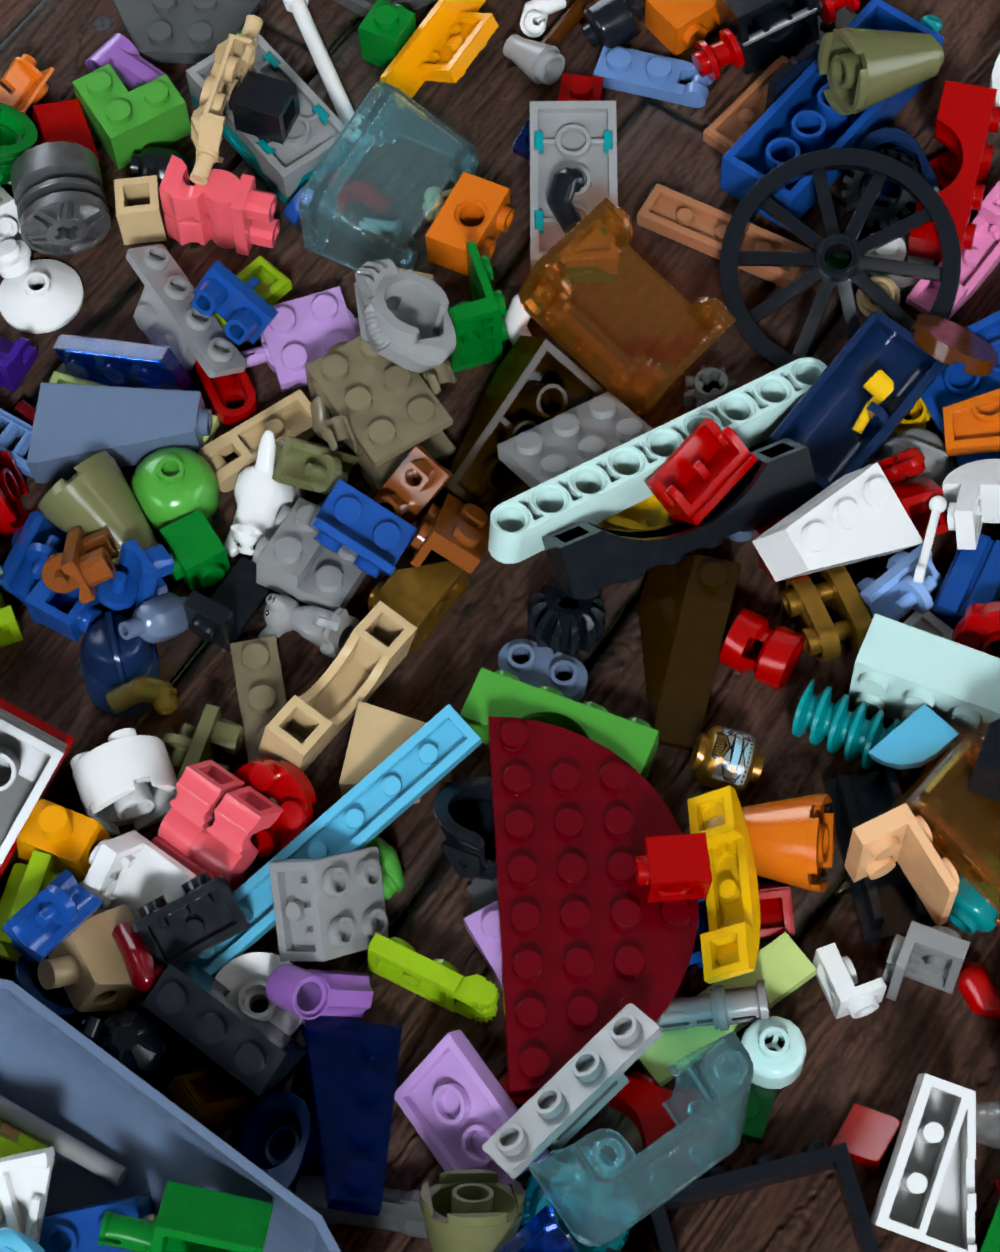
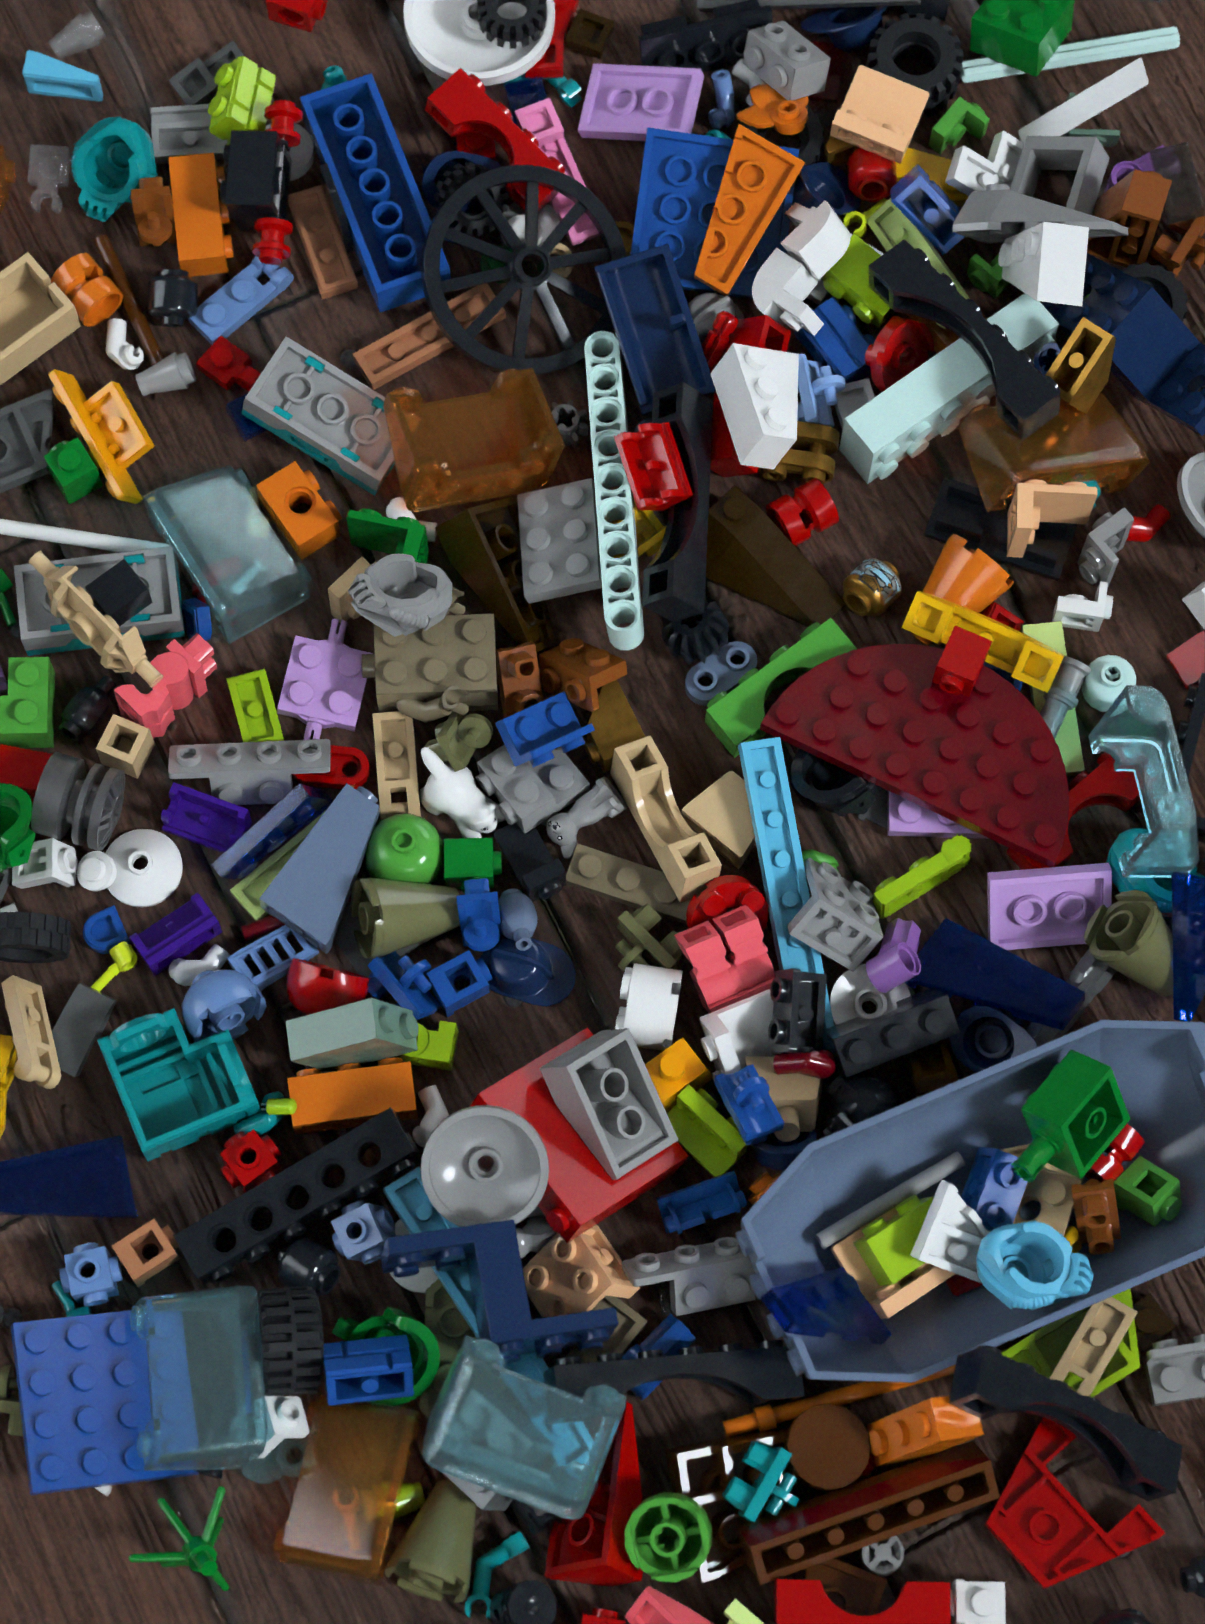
camera: 65 degrees left, 10 degrees up
(82, 564) = (448, 961): dark orange hips -> none
(111, 304) = (204, 818): none -> dark purple hinge
(144, 689) = (566, 961): clear yellow arm -> none
(235, 302) = (271, 716): blue hips -> none
(561, 194) = (347, 425): black arm -> none
(573, 1092) = (1085, 818): light grey bracket -> none
(839, 725) = (895, 492): teal piece -> none
(874, 65) = (381, 139): olive cone -> none
(880, 387) = (655, 306): yellow hand -> none
(915, 741) = (950, 452): medium azure brick -> none
(937, 505) = (777, 327): white hinge -> none
(953, 343) = (658, 234): reddish brown tile -> none

